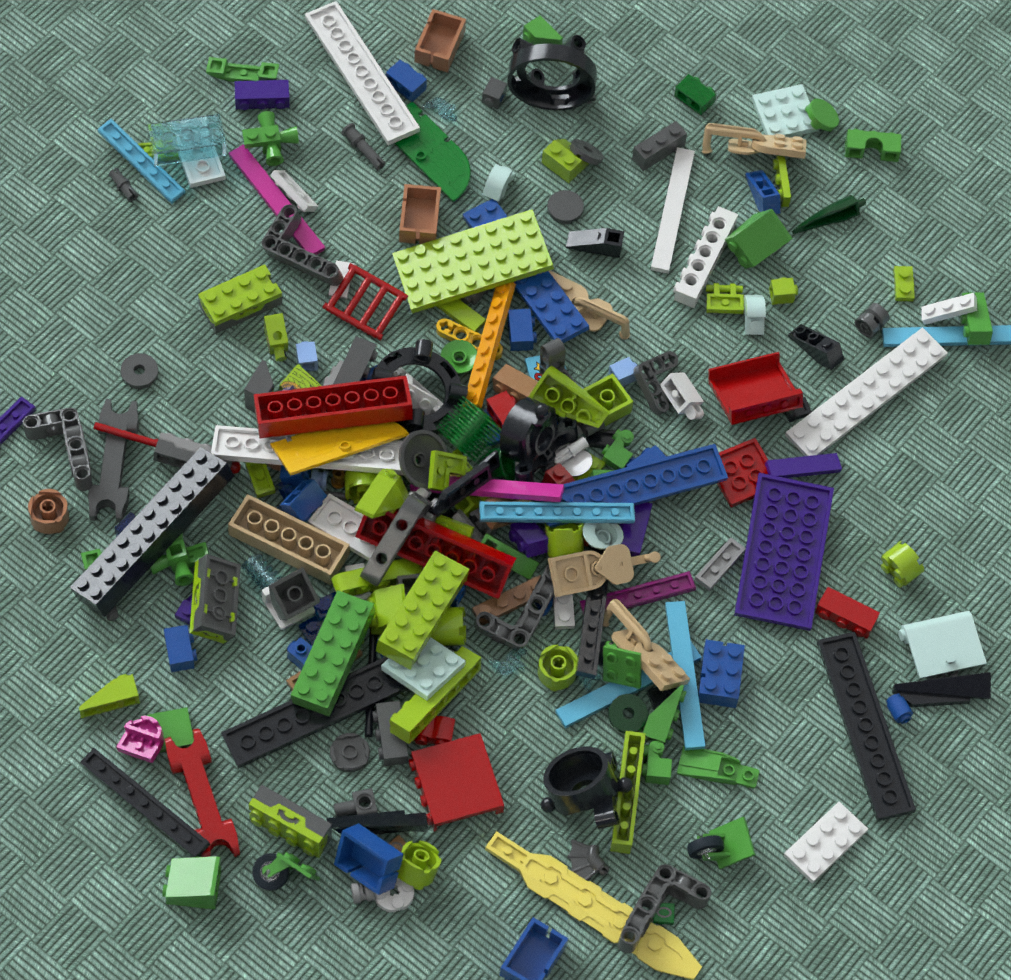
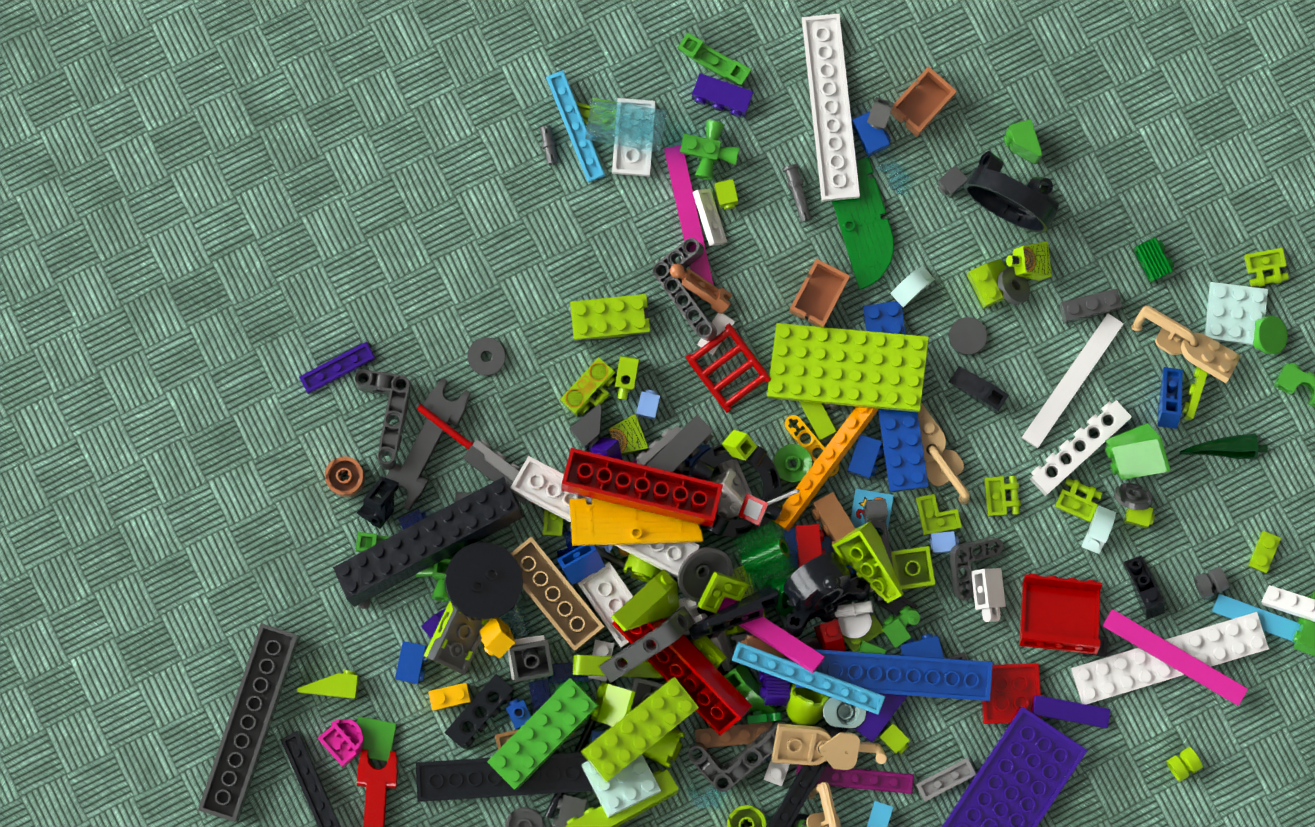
camera: 30 degrees right, 20 degrees up
(43, 757) = (249, 723): none -> dark grey brick
(93, 511) = (377, 509): none -> black tile
(219, 541) = (483, 581): none -> black plate
(229, 663) = (449, 696): none -> yellow brick
(242, 363) = (590, 382): none -> lime piece
(252, 585) = (497, 637): none -> yellow brick
(269, 638) = (456, 730): none -> black brick
(300, 168) = (726, 194): none -> lime brick
(332, 249) = (701, 287): none -> nougat plate
(406, 343) = (739, 445): none -> lime brick
(408, 55) = (880, 113): none -> dark grey brick
(443, 394) = (754, 508): none -> piece
(529, 571) = (759, 717): none -> green plate
(593, 128) = (1031, 261): none -> lime torso
(604, 357) = (934, 521): none -> lime plate
(651, 320) = (996, 498): none -> lime plate
(660, 544) = (894, 739): none -> lime brick
(770, 275) = (1133, 496): none -> dark grey tile
(789, 64) = (1265, 261): none -> lime plate
(871, 386) = (1175, 657): none -> dark pink tile
(924, 471) = (1183, 764): none -> lime wheel

